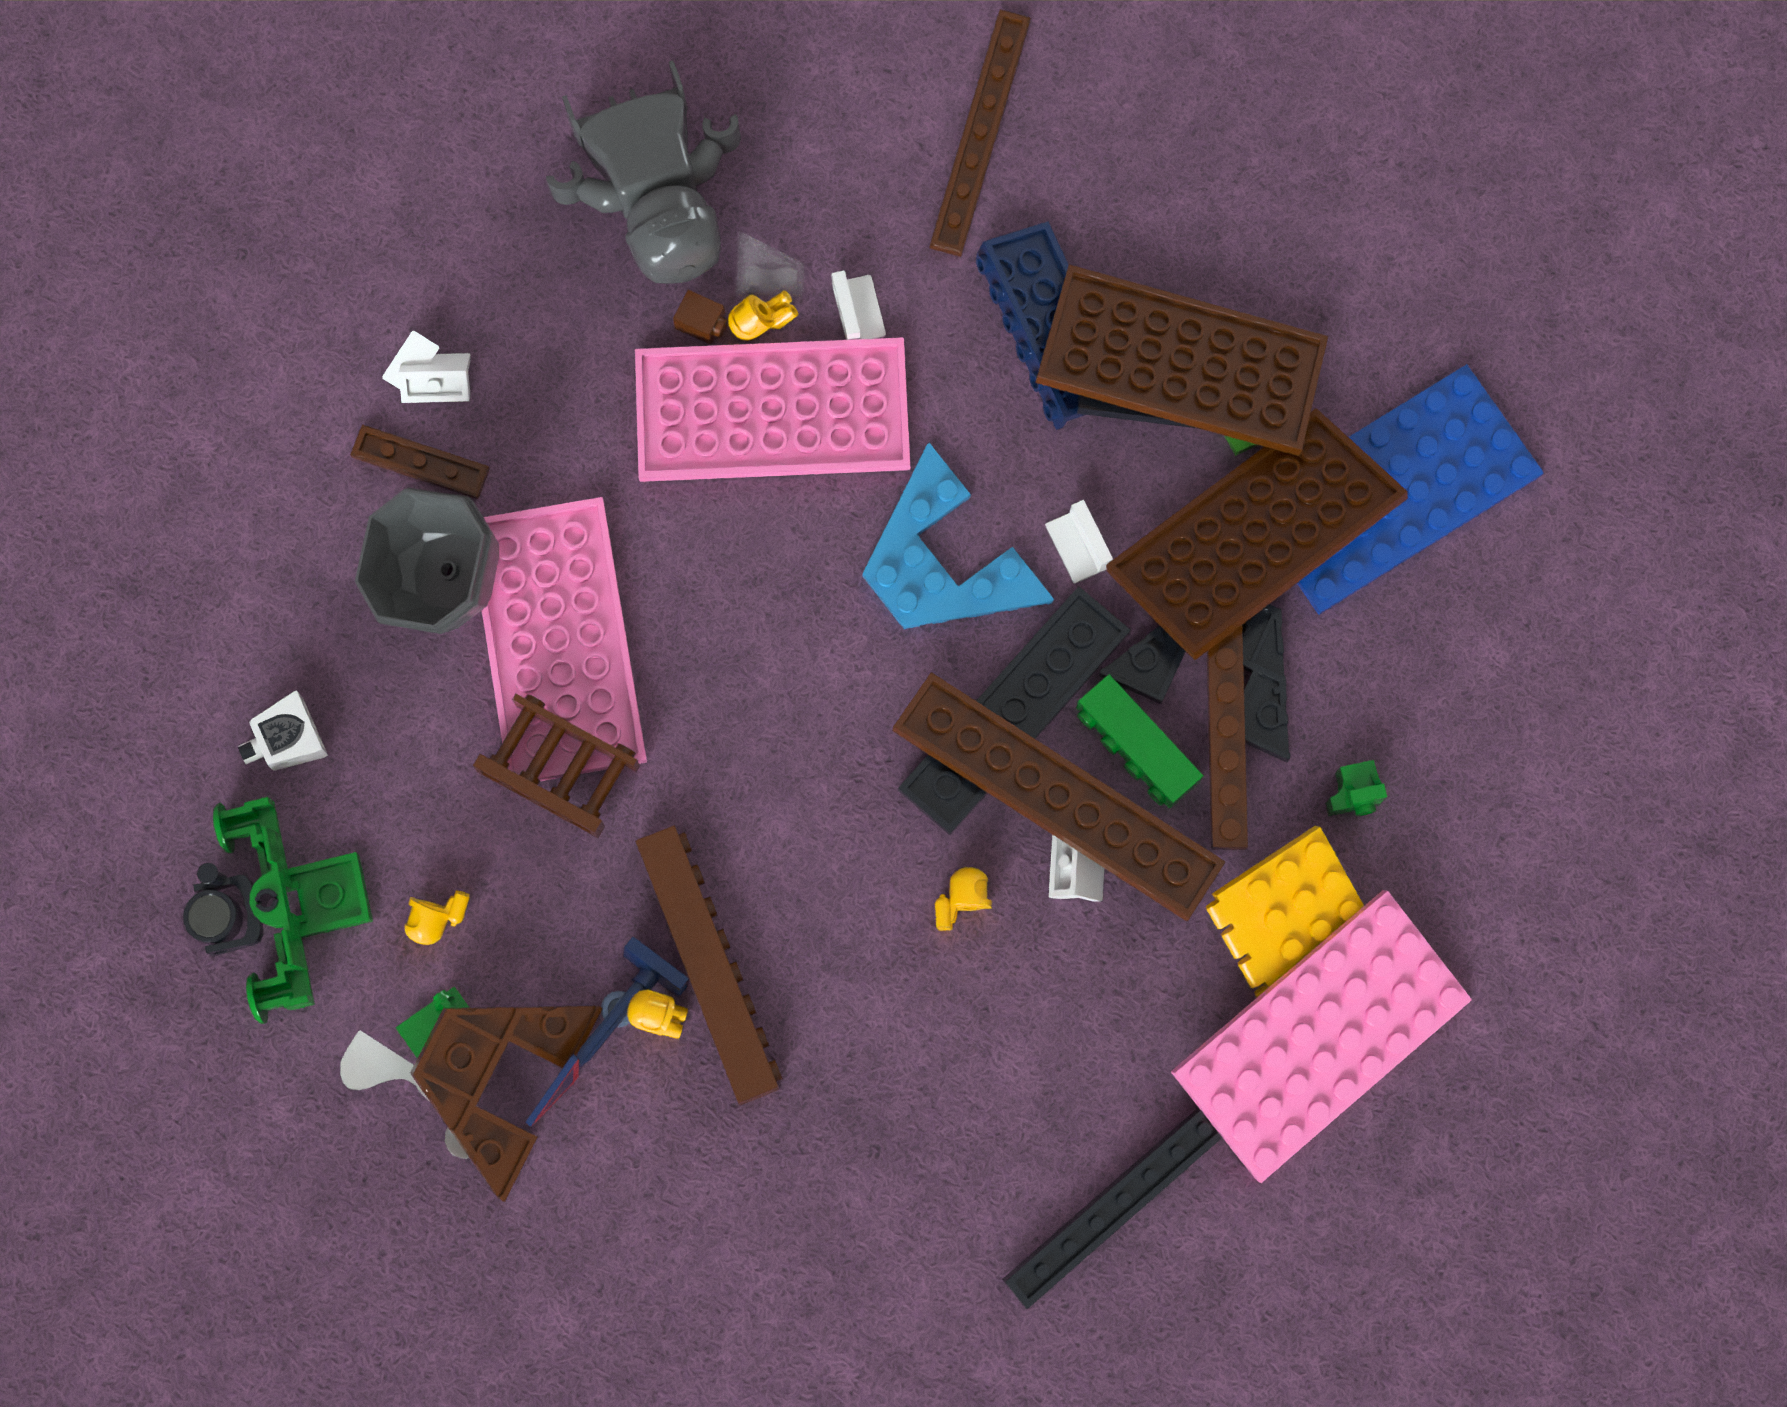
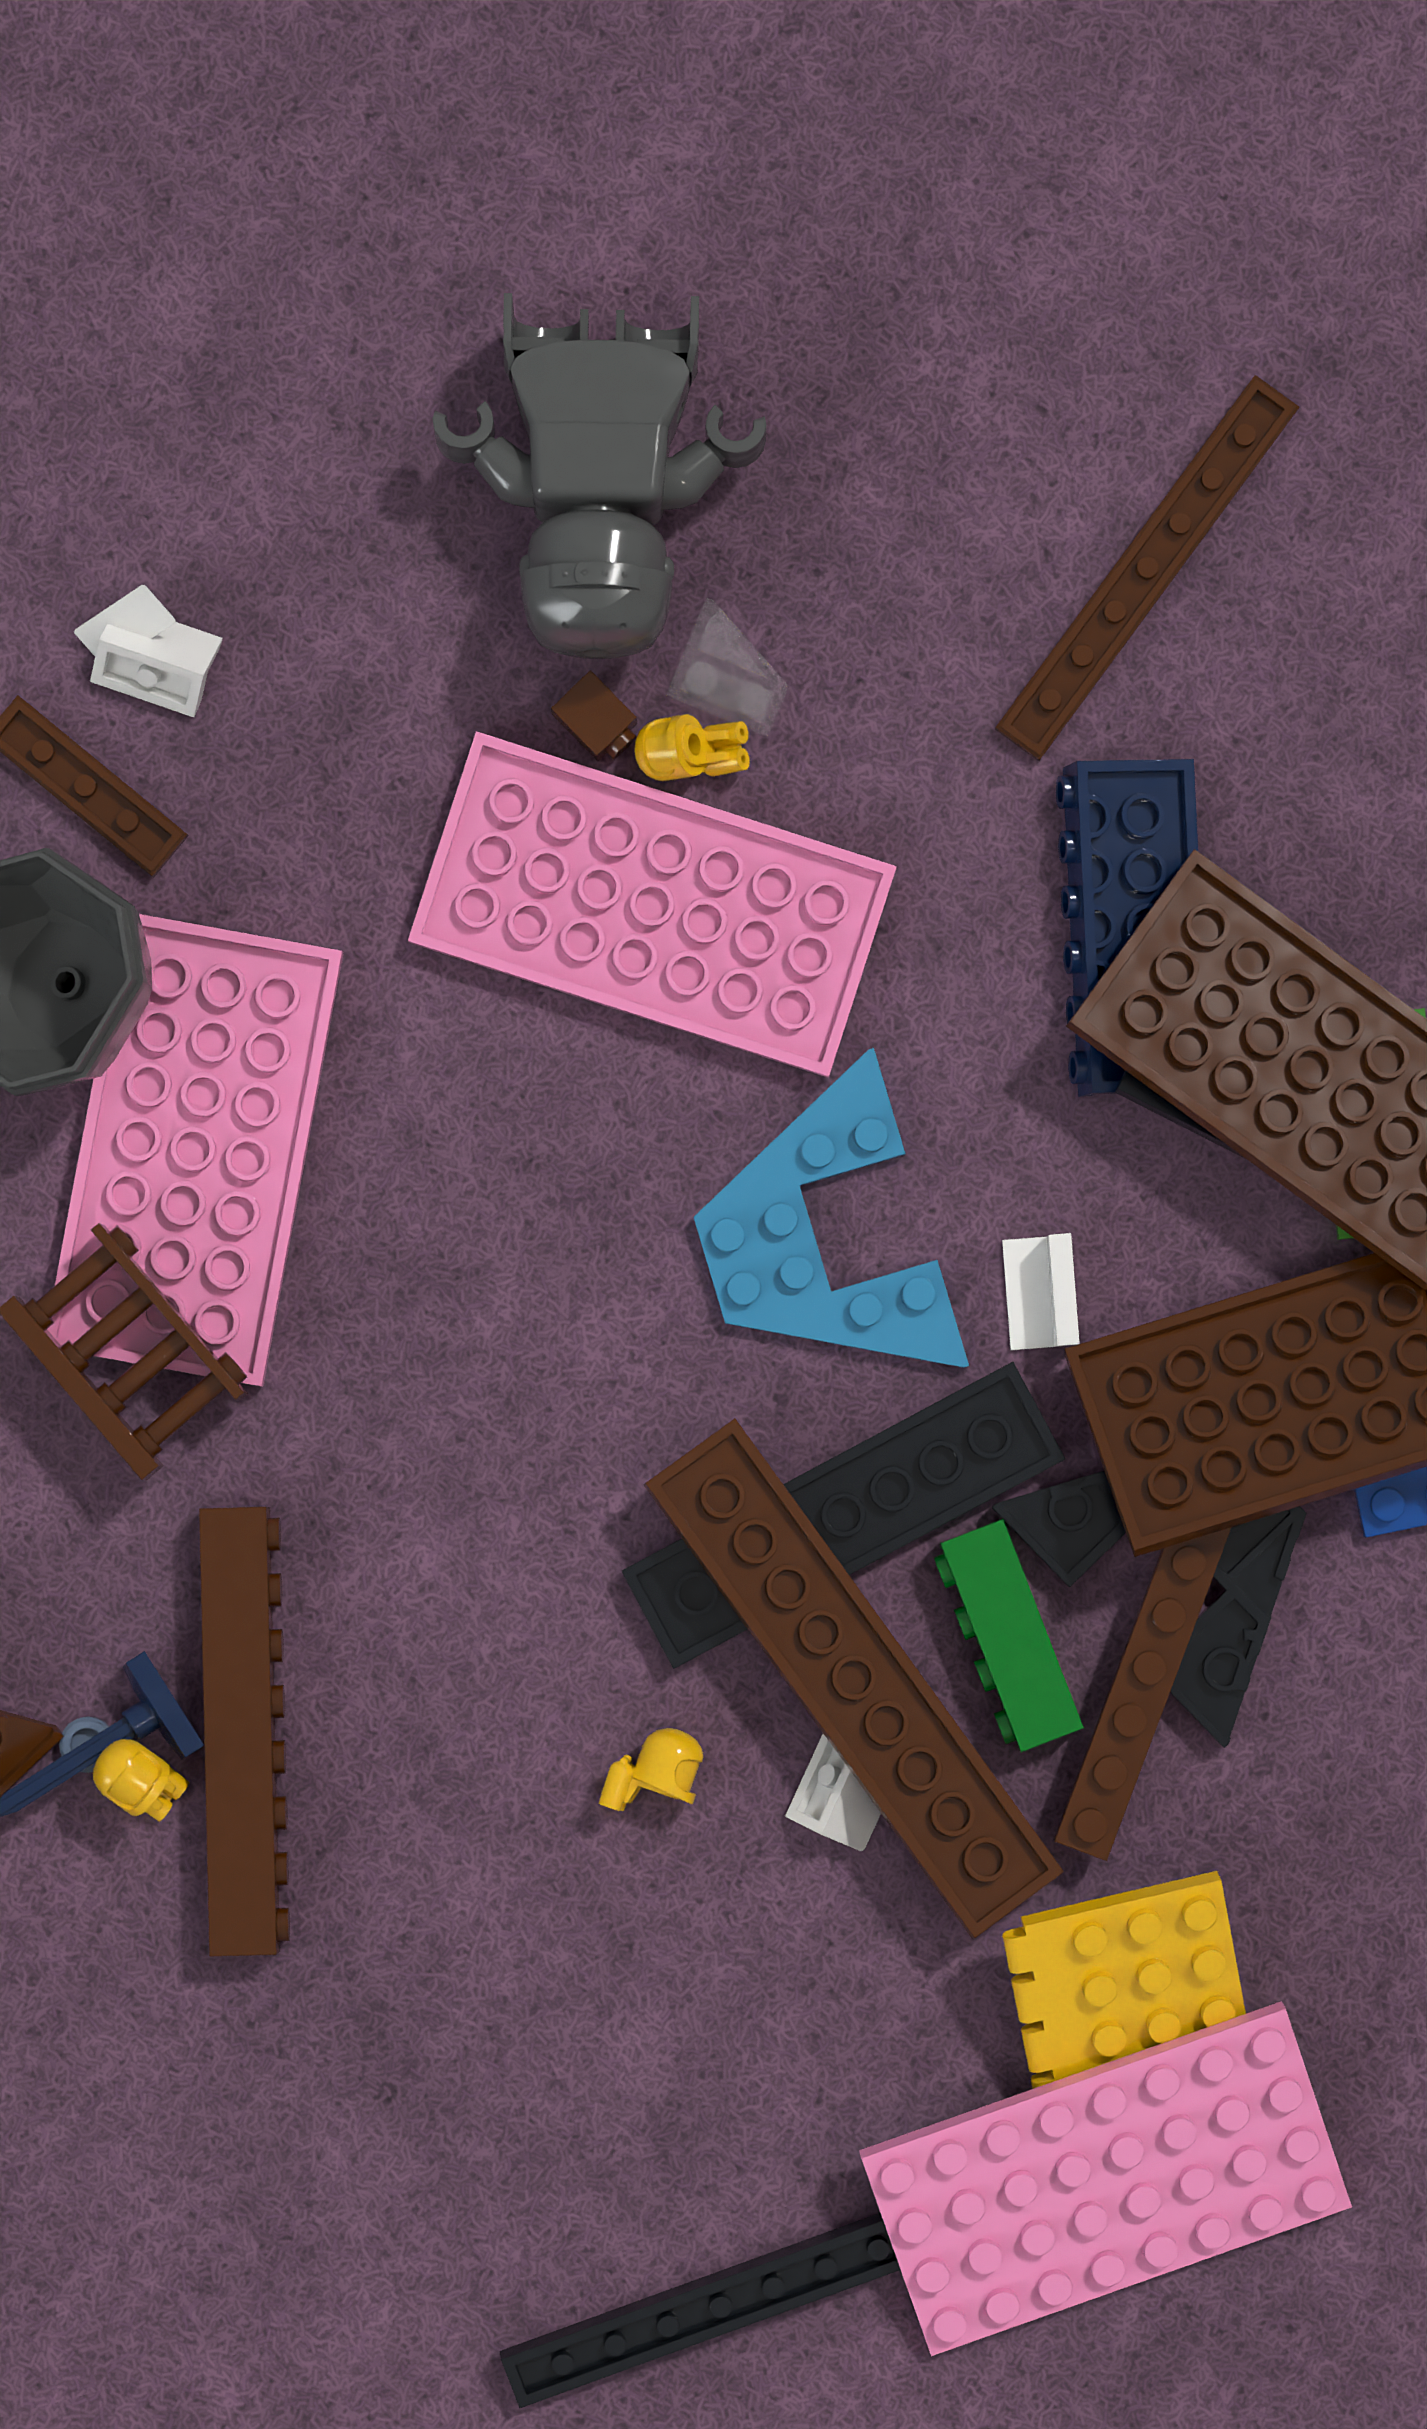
camera: 25 degrees right, 10 degrees up
(858, 307) = (847, 788): white panel -> none
(1357, 790) = (1308, 1832): green brick -> none

